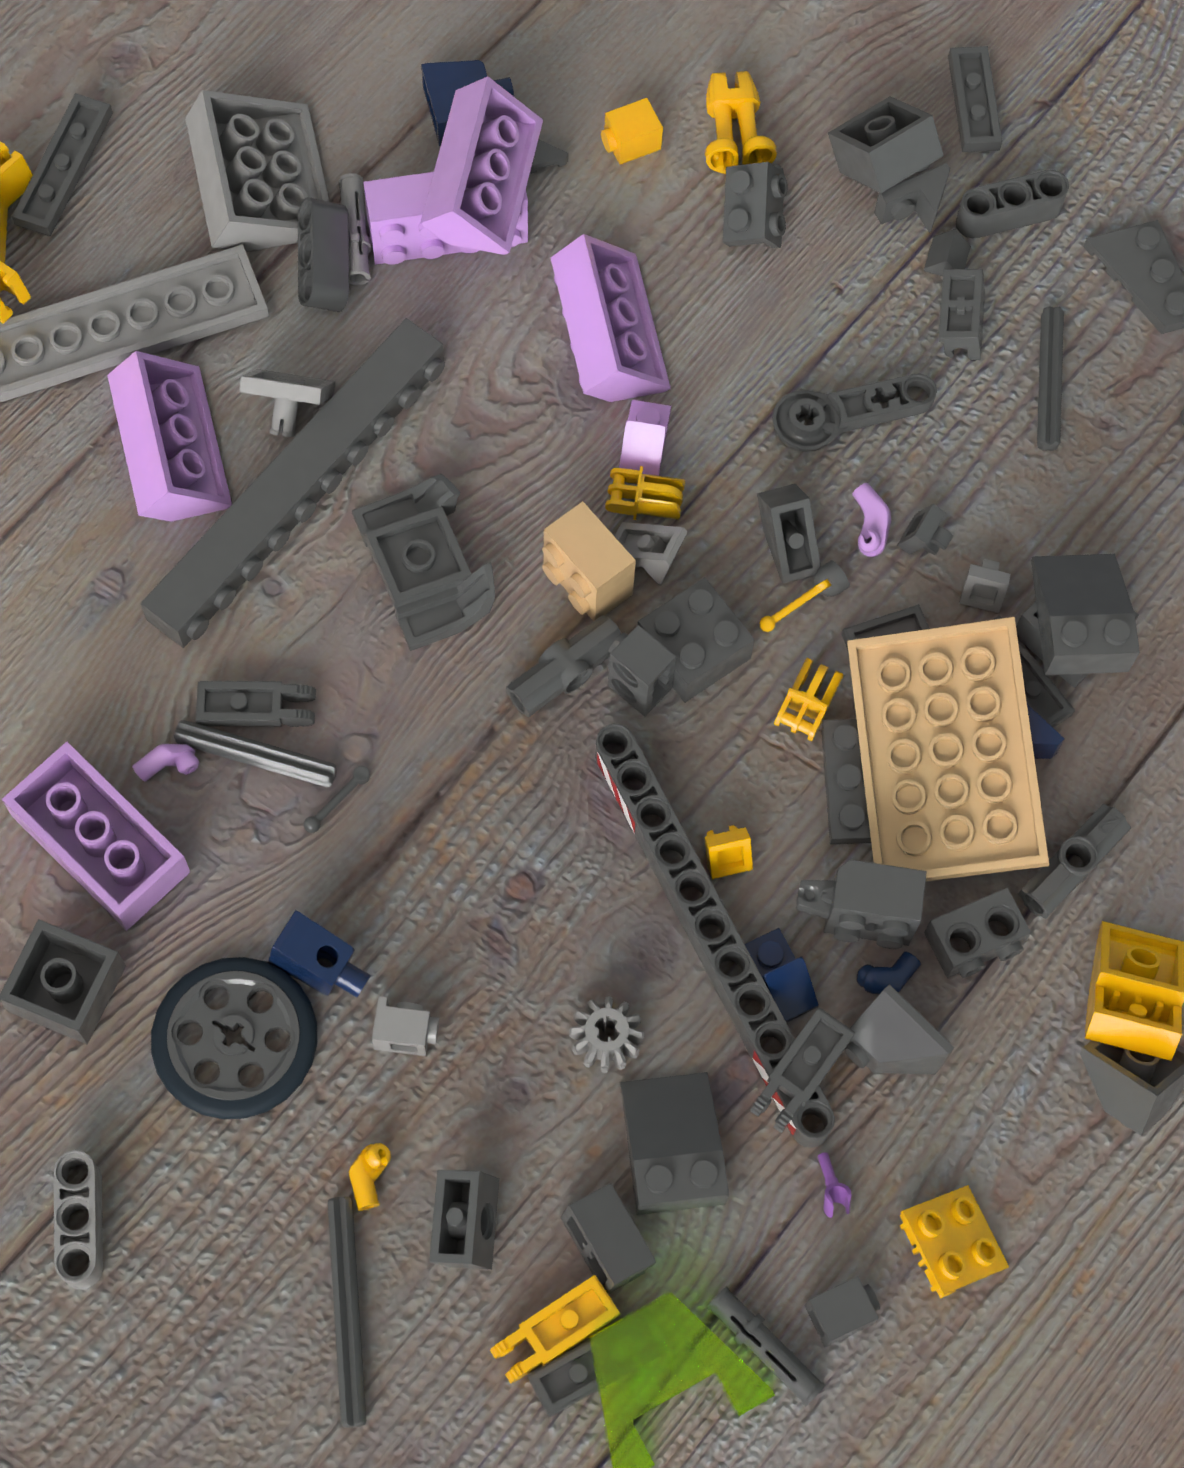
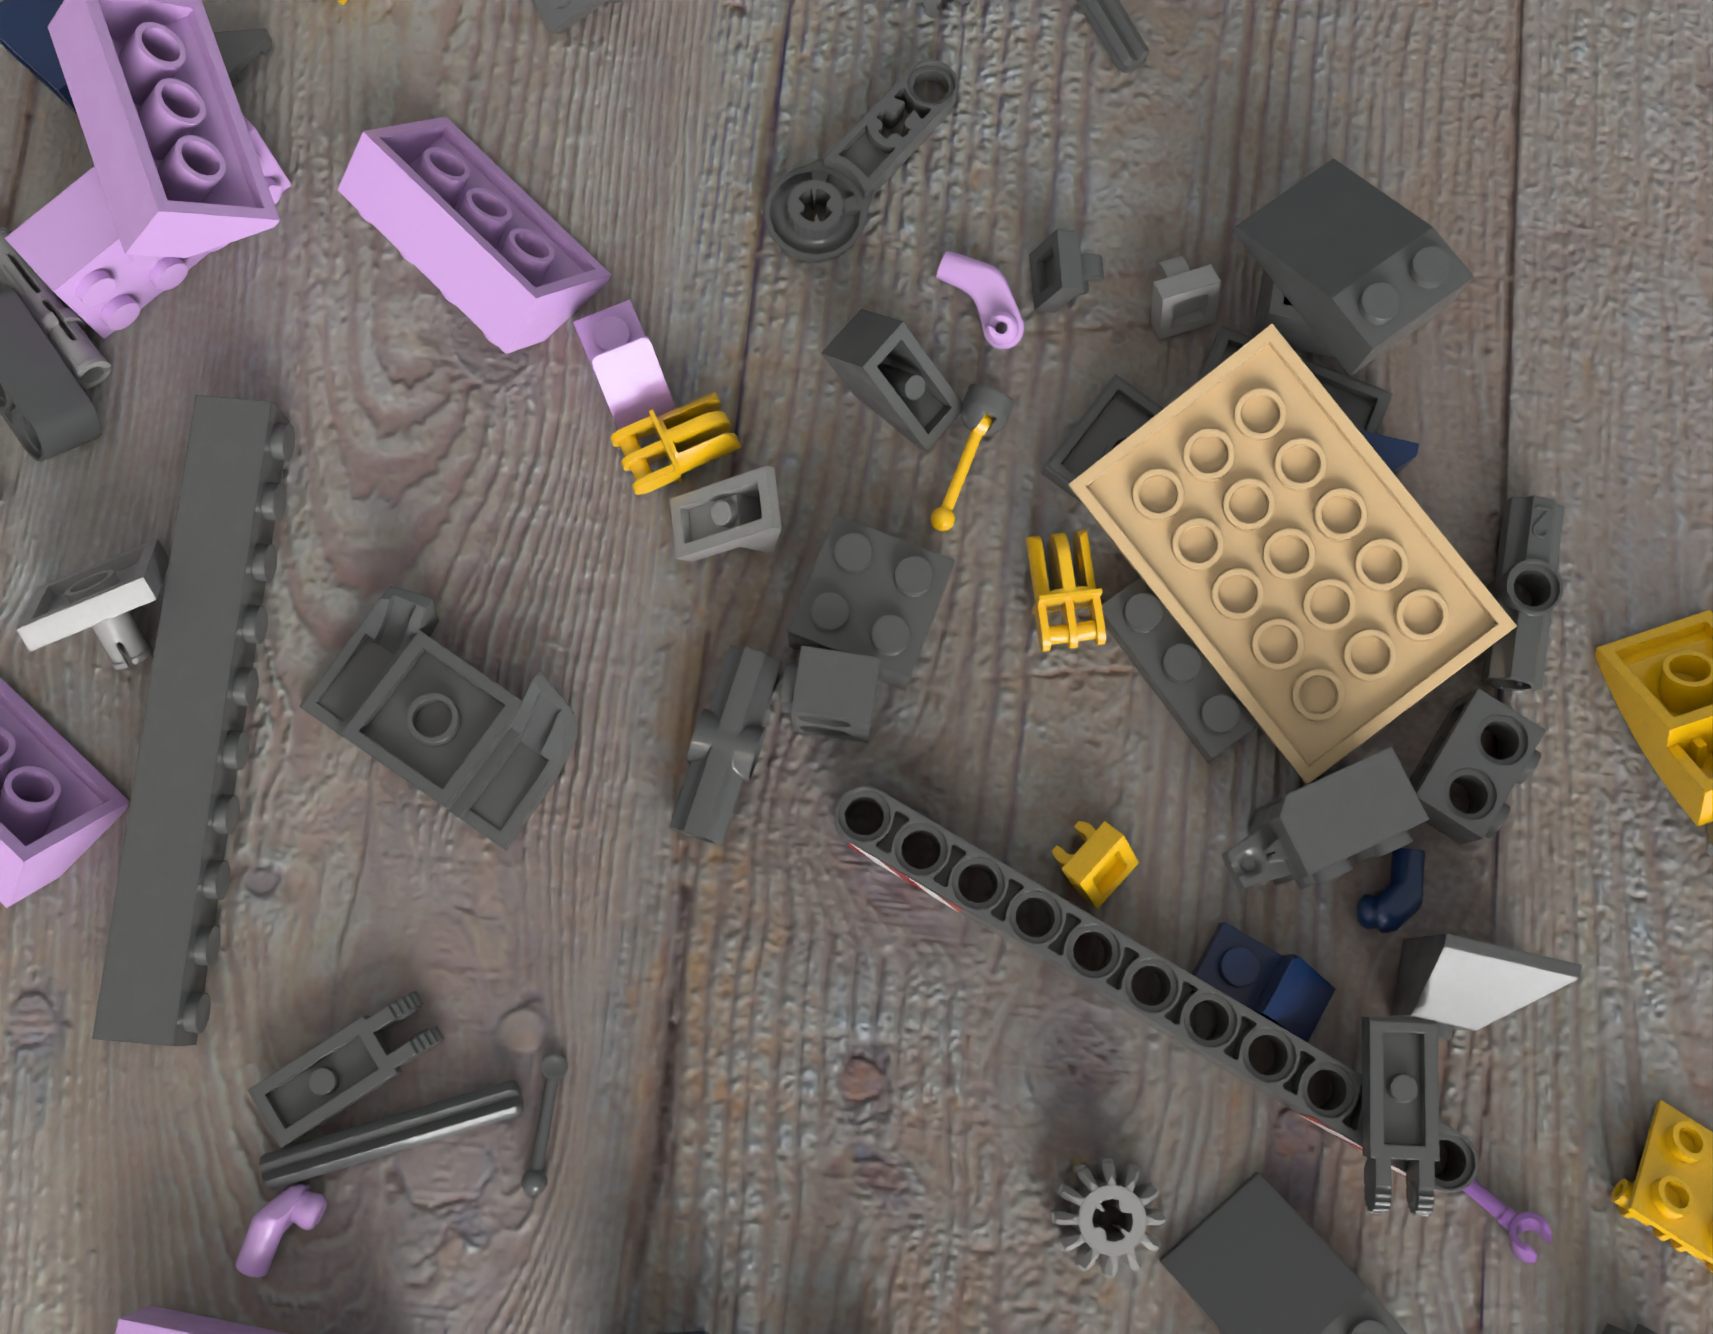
camera: 35 degrees left, 10 degrees up
(588, 562) = (666, 588): tan brick -> none

